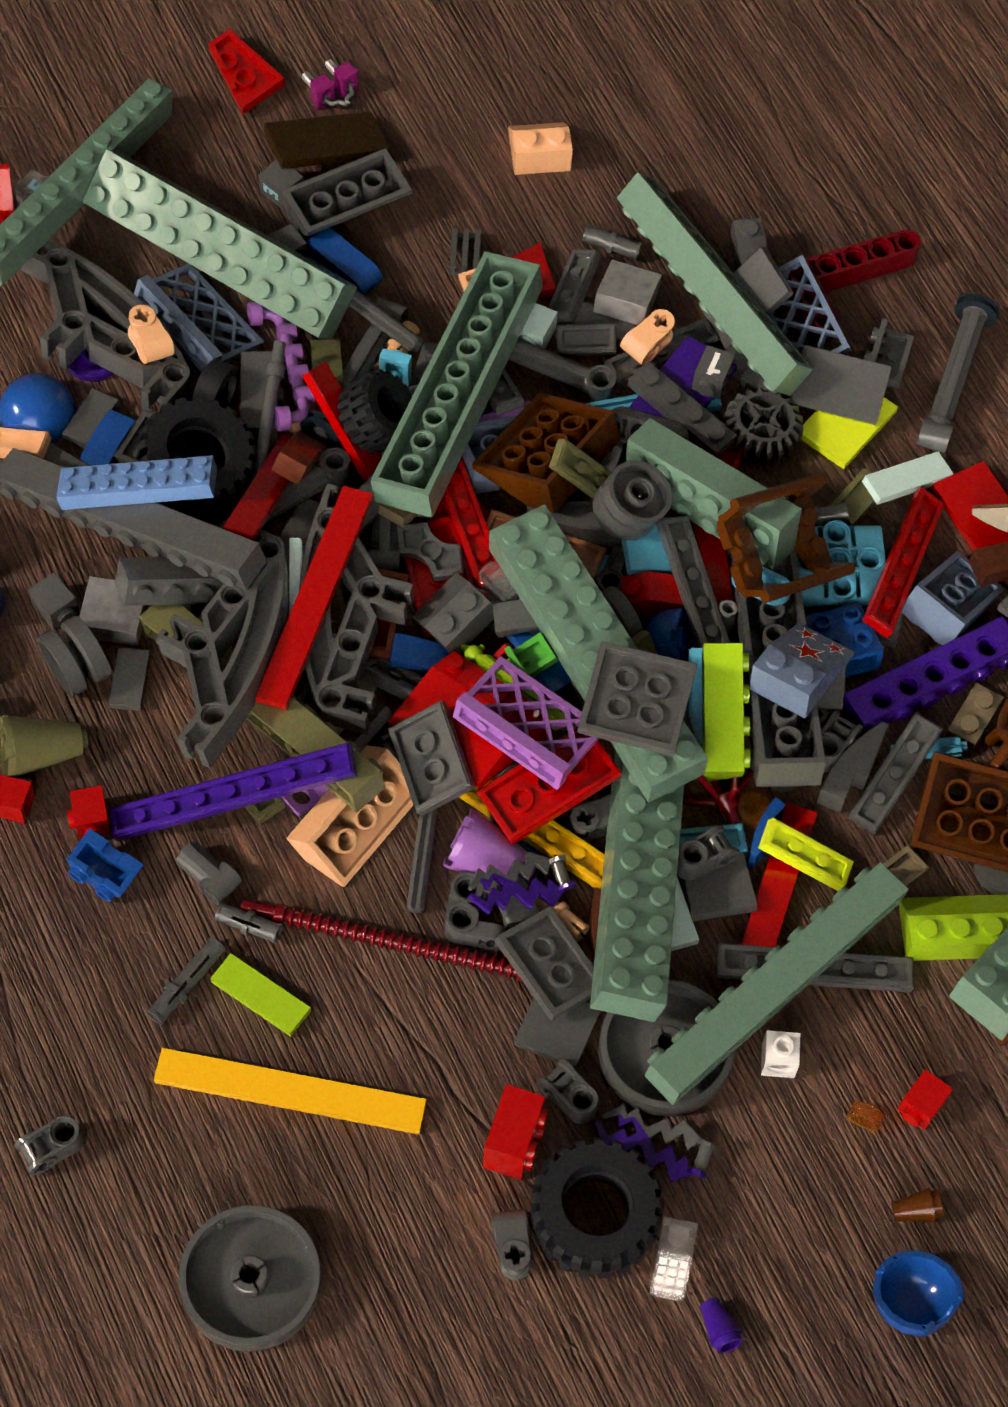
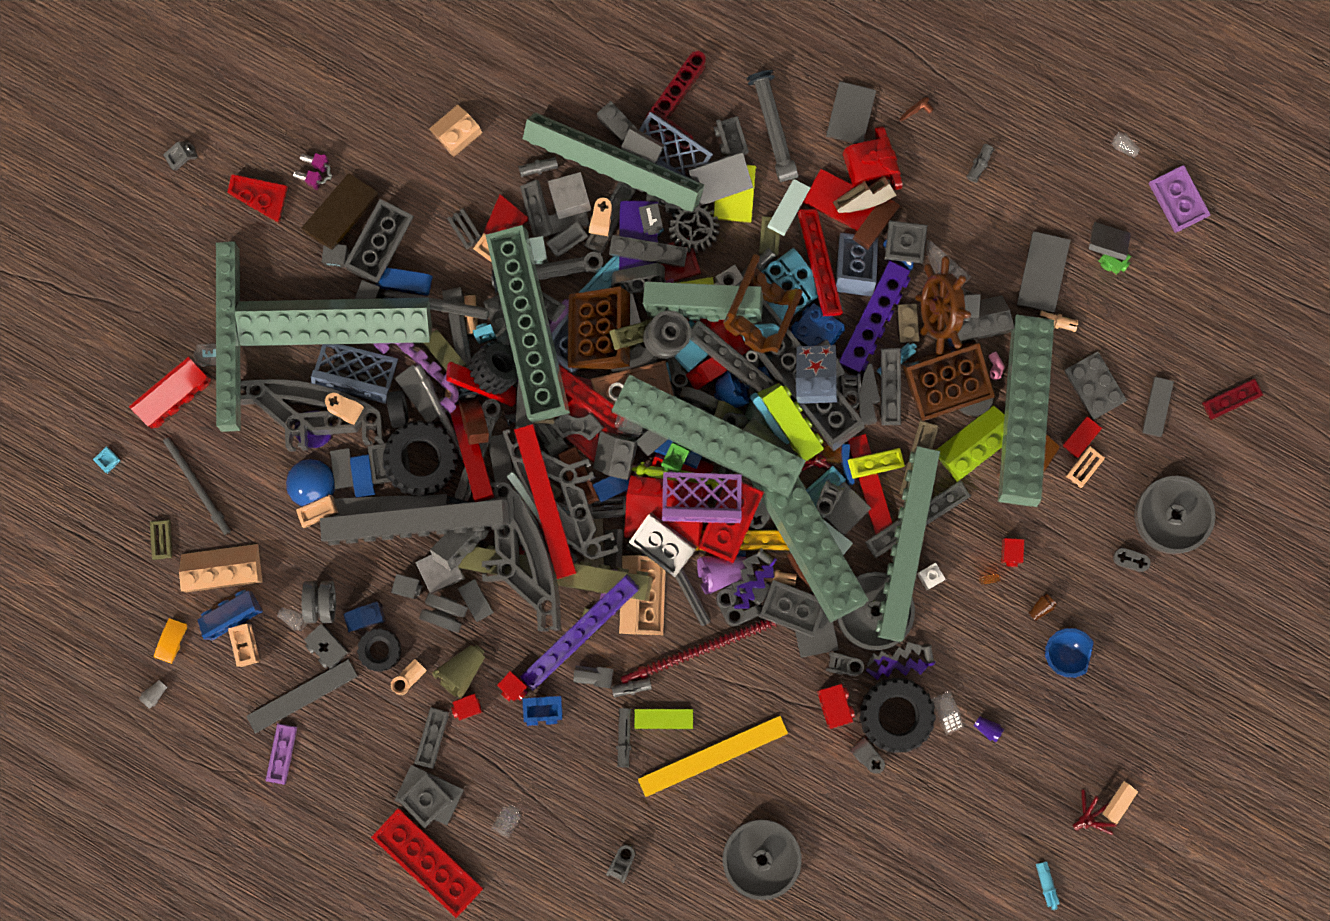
camera: 25 degrees left, 20 degrees up
(137, 482) = (408, 503): medium blue piece -> none
(637, 698) = (752, 456): dark grey plate -> none

